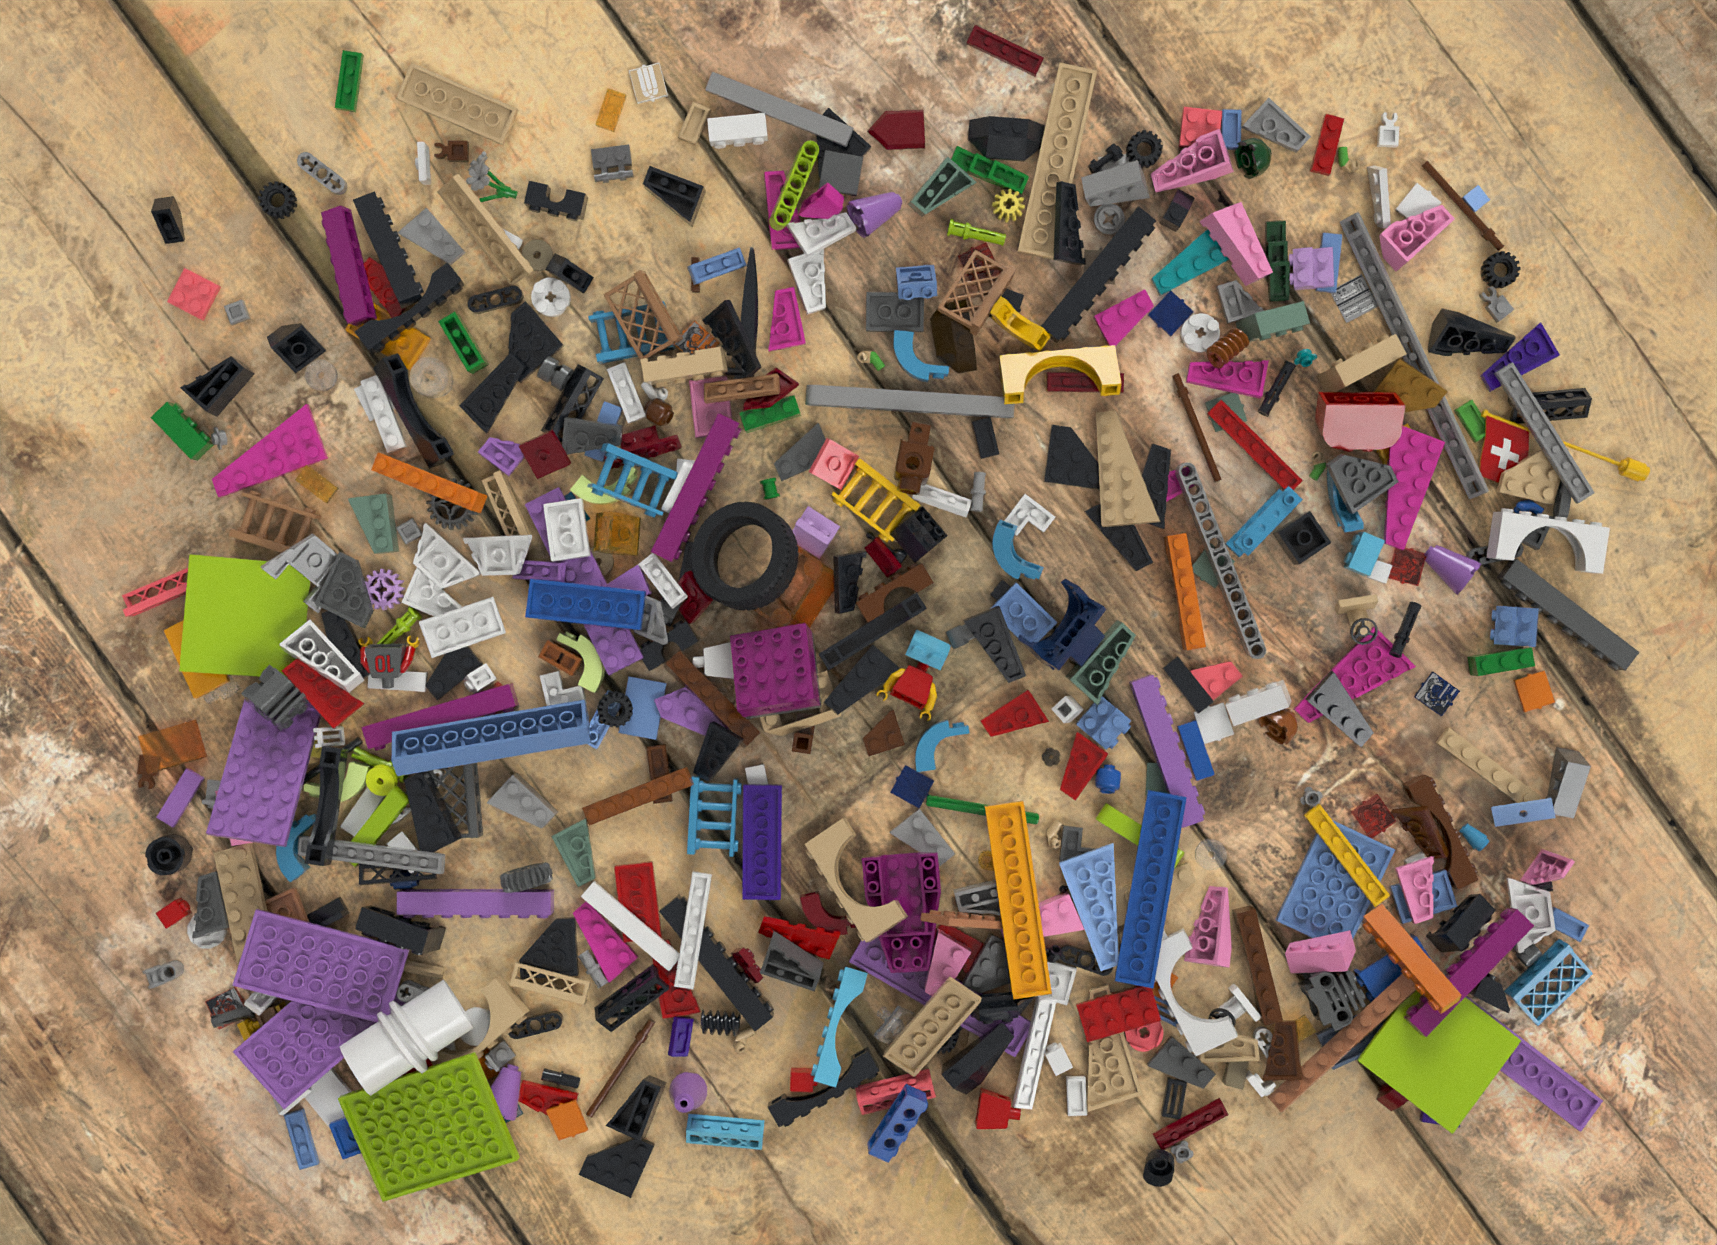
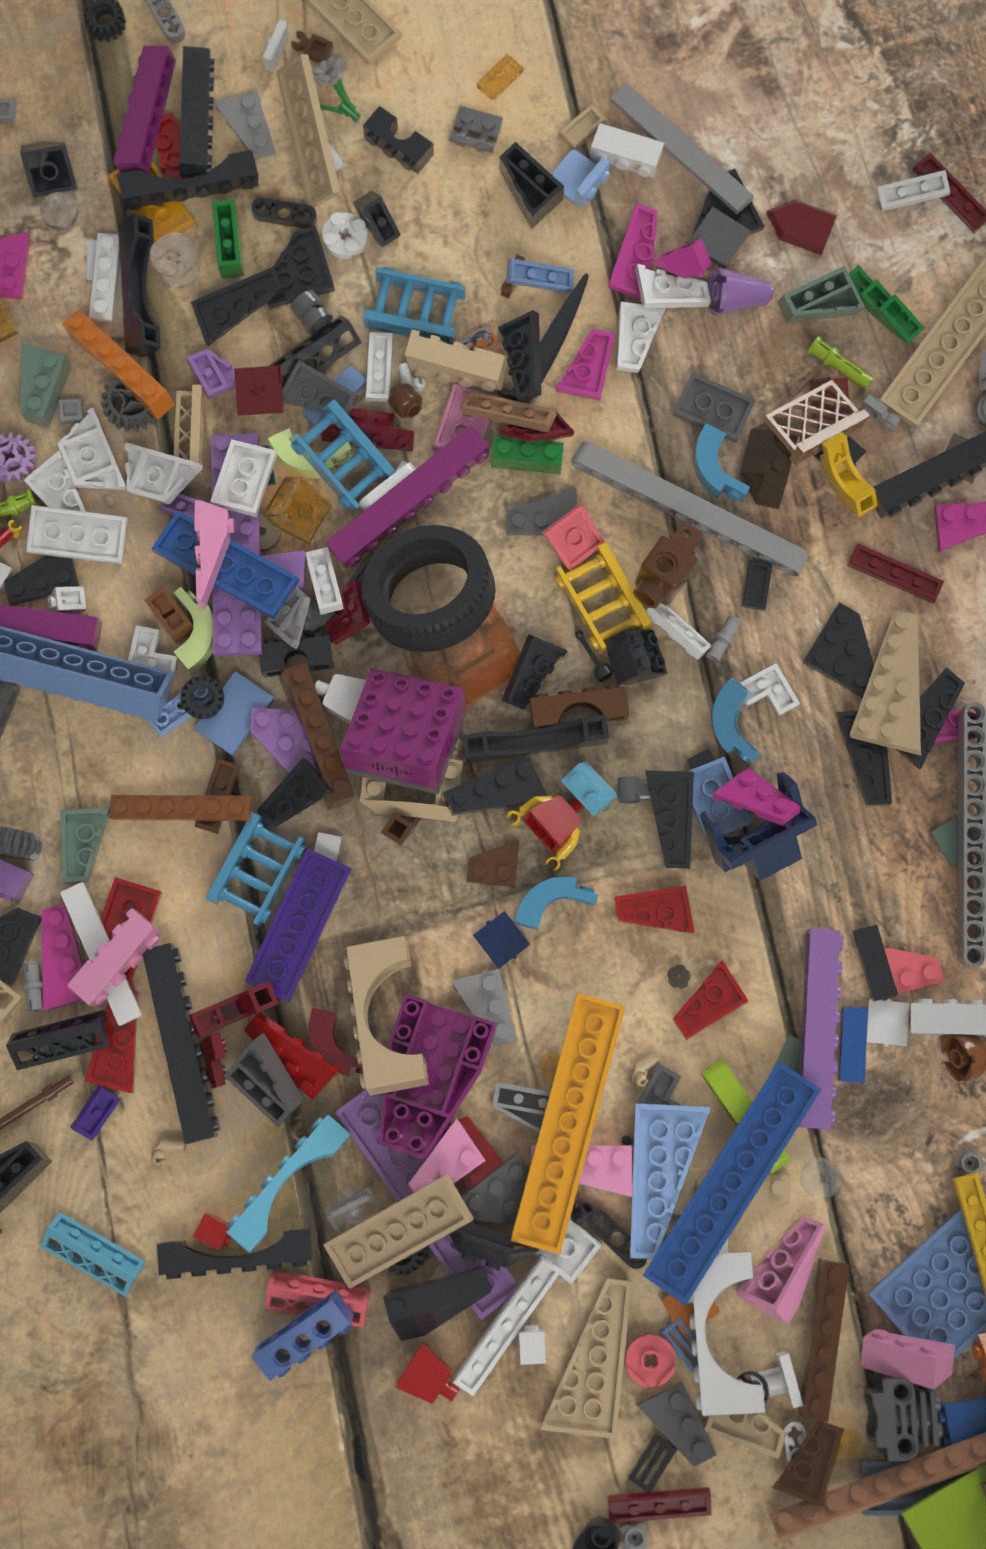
camera: 20 degrees right, 10 degrees down
(523, 801) = (48, 756): light grey wedge -> none
(534, 247) = (351, 178): dark tan piece -> none
(567, 588) = (213, 533): none -> bright pink wedge
(644, 927) = (115, 958): none -> bright pink wedge
(648, 83) = (552, 68): piece -> none
(655, 304) = (455, 288): medium nougat fence -> none
(688, 1091) = (72, 1184): medium lavender cone -> none
(693, 930) = (169, 989): white tile -> none
(711, 168) = (581, 177): none -> light blue bracket
(720, 1023) = (149, 1117): black piece -> none
(743, 922) = (233, 1009): none -> dark red arch
(769, 488) = (490, 535): green bush -> none
(797, 177) = (654, 233): lime beam -> none
(814, 532) = (519, 603): lavender bracket -> none
(871, 357) = (666, 445): arm -> none
(882, 557) = (583, 663): dark red tile -> none
(916, 282) = (752, 384): medium blue plate -> none
(962, 919) = (491, 1114): nougat plate -> none
(969, 807) = (558, 993): green axle -> none
(974, 64) = (913, 190): none -> white plate
(1005, 137) = (916, 277): black wedge -> none
(1013, 211) = (888, 340): light yellow gear -> none
(1018, 259) = (878, 412): none -> light grey plate
(1053, 604) = (757, 795): none -> dark pink wing
(1067, 225) = (940, 407): black wing -> none
(1067, 709) = (722, 927): white brick -> none
(1076, 1095) = (534, 1404): white tile -> none
(1095, 362) = (917, 554): yellow arch -> none
(1101, 665) = (775, 896): sand green wedge -> none
(1104, 723) = (758, 964): medium blue plate -> none
(1108, 779) = (735, 1032): blue head -> none
(1118, 1012) = (630, 1320): red plate -> none
(1186, 594) = (921, 830): orange arch -> none
(1235, 1074) = (742, 1464): dark tan slope -> none
(1262, 1089) = (762, 1488): white bracket -> none

